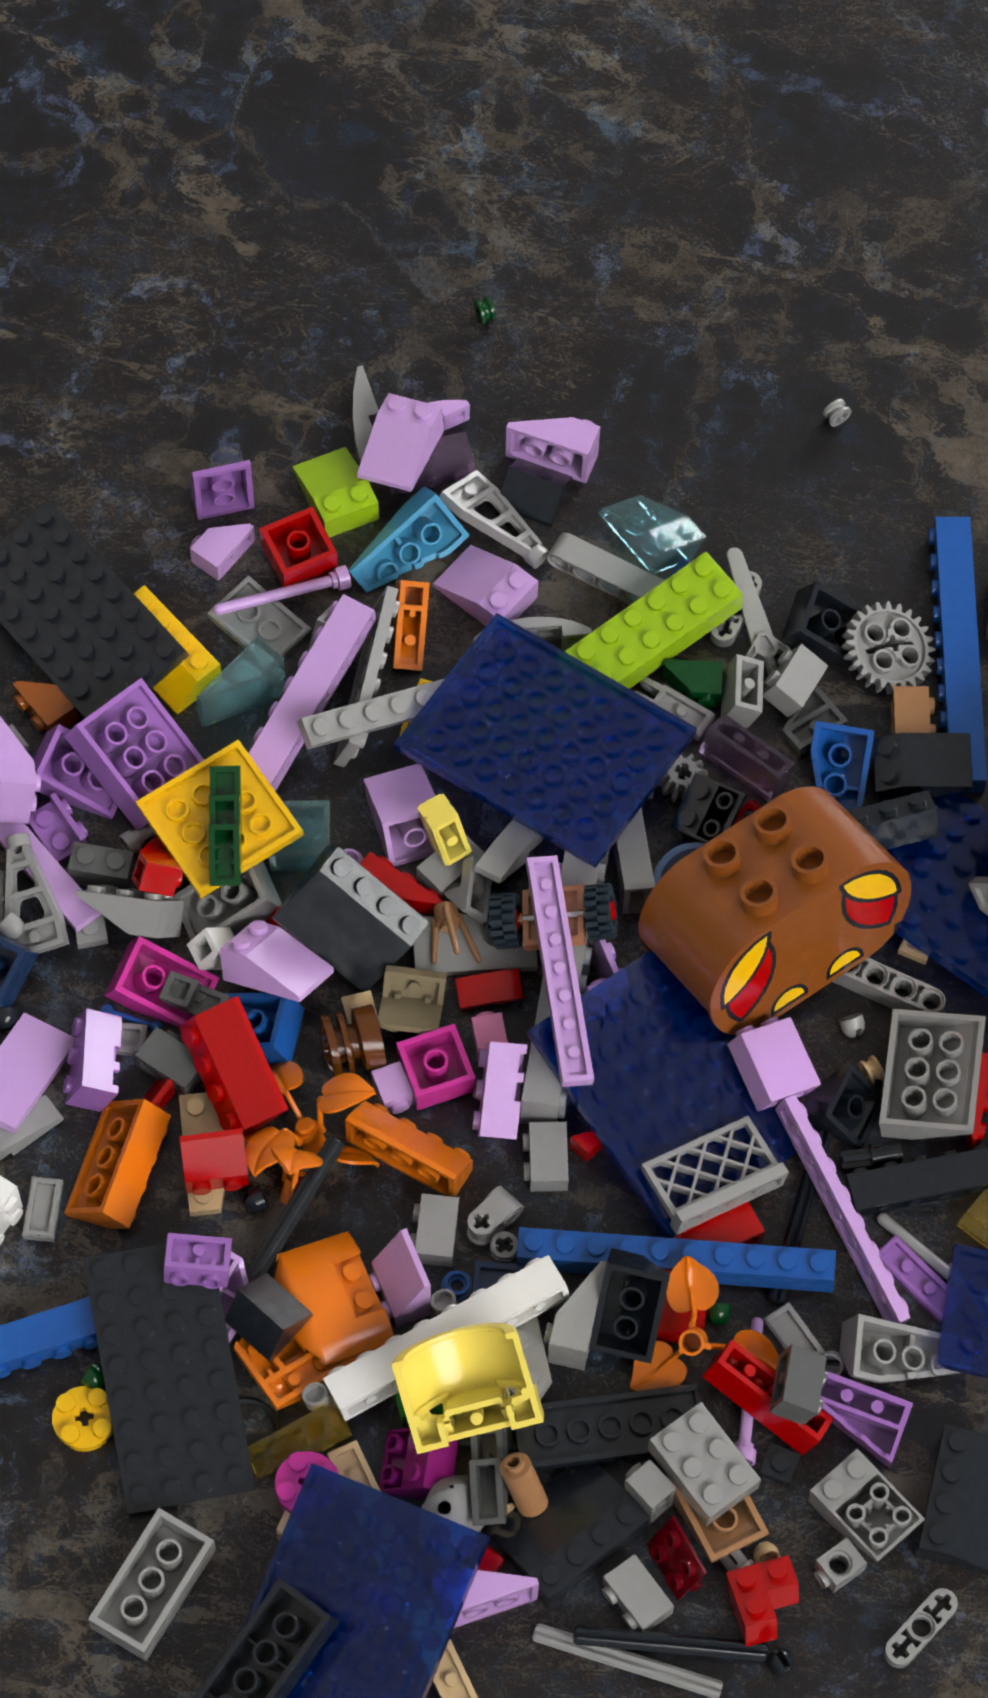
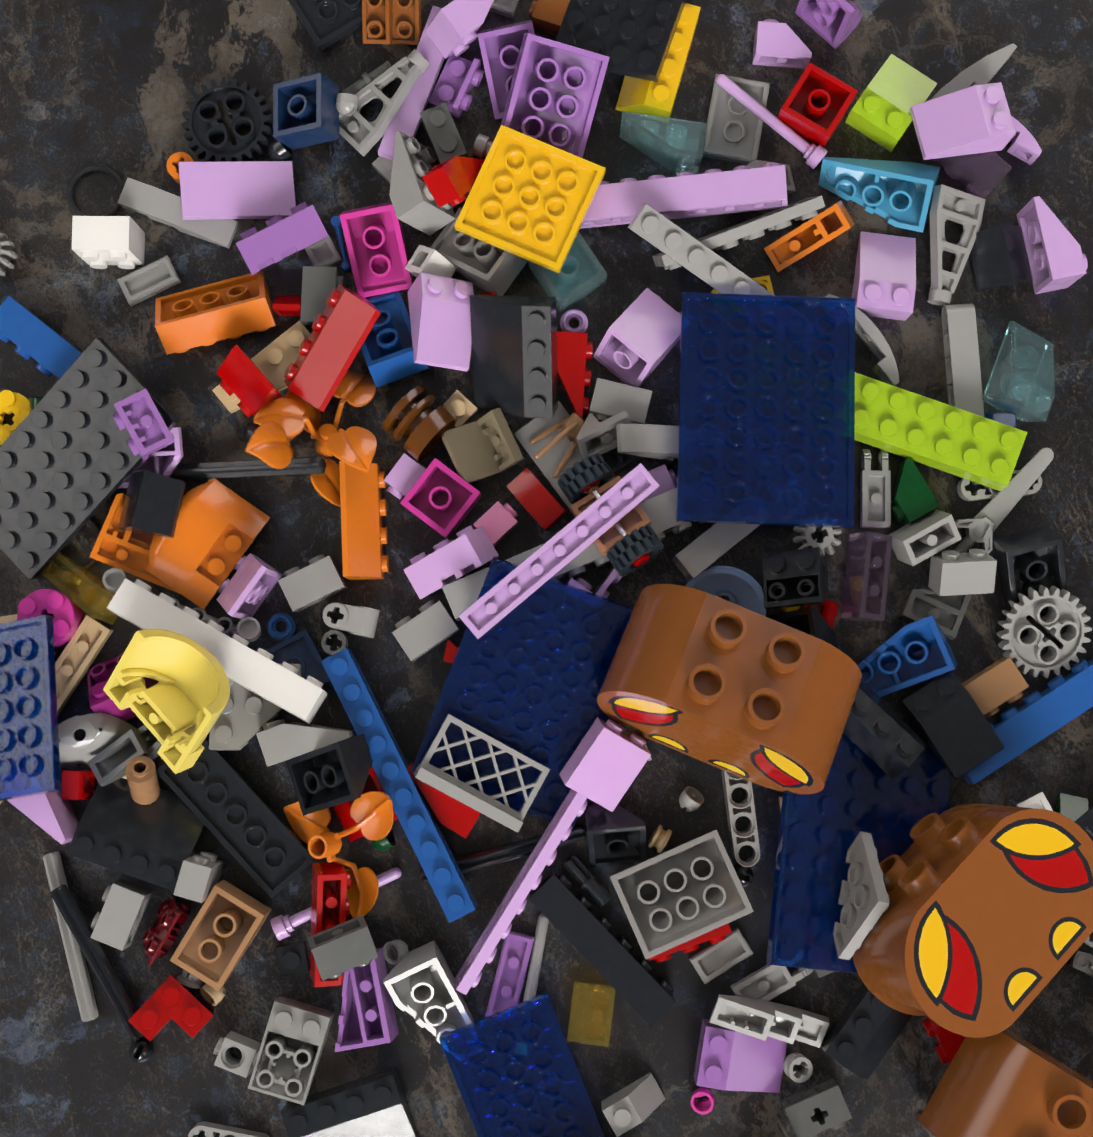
camera: 65 degrees right, 20 degrees up
(189, 995) = (379, 279): dark grey slope -> none
(225, 826) = (520, 207): dark green slope -> none
(444, 829) = (634, 379): light yellow brick -> none
(703, 1463) = (232, 913): light grey brick -> none
(790, 1329) = (402, 907): light grey tile -> none

